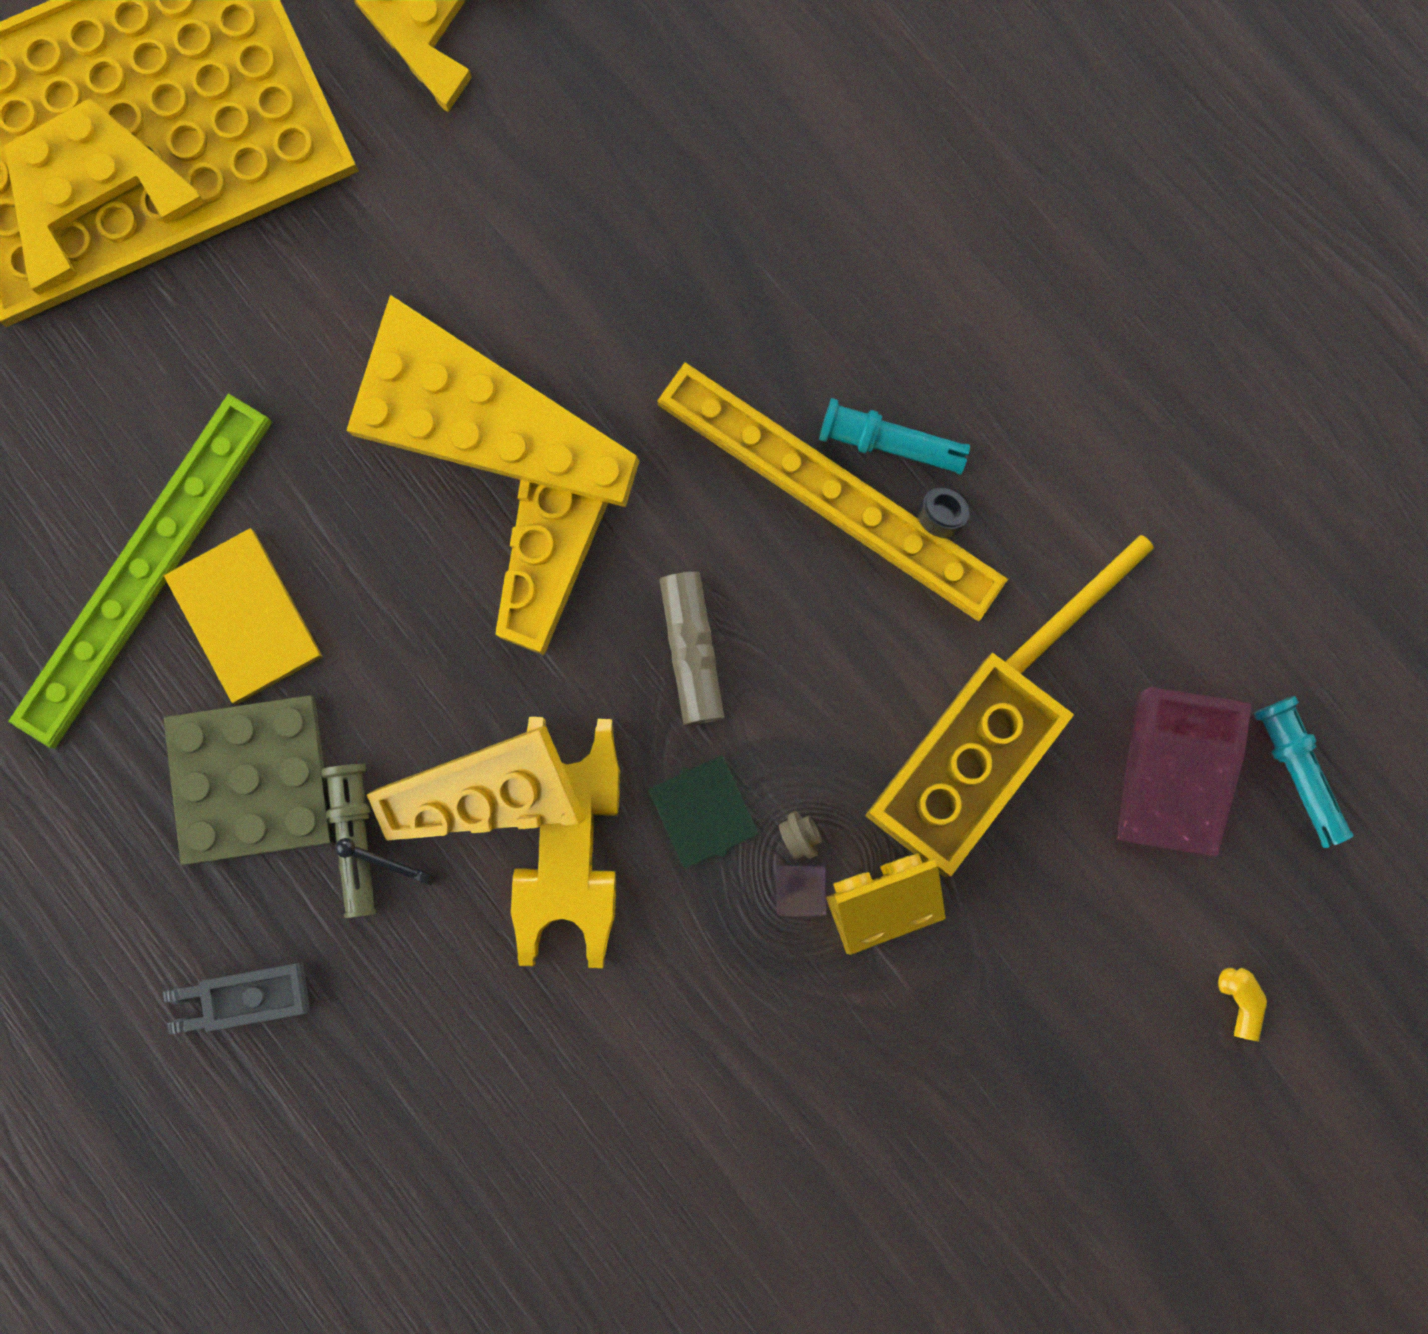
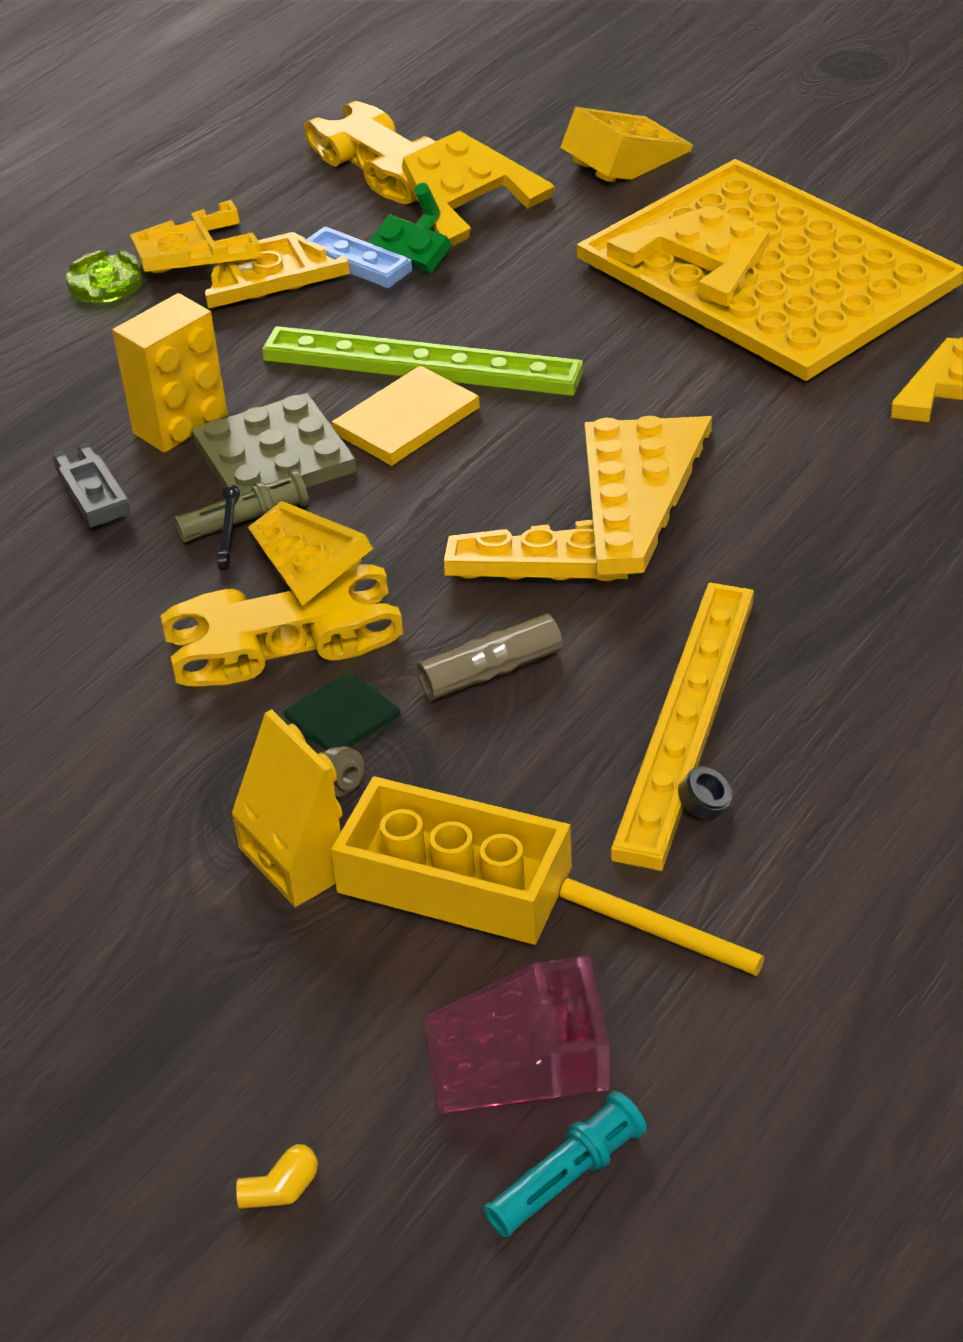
camera: 75 degrees right, 40 degrees down
(120, 870) = (170, 371): none -> yellow brick
(871, 432) = (756, 723): teal pin -> none

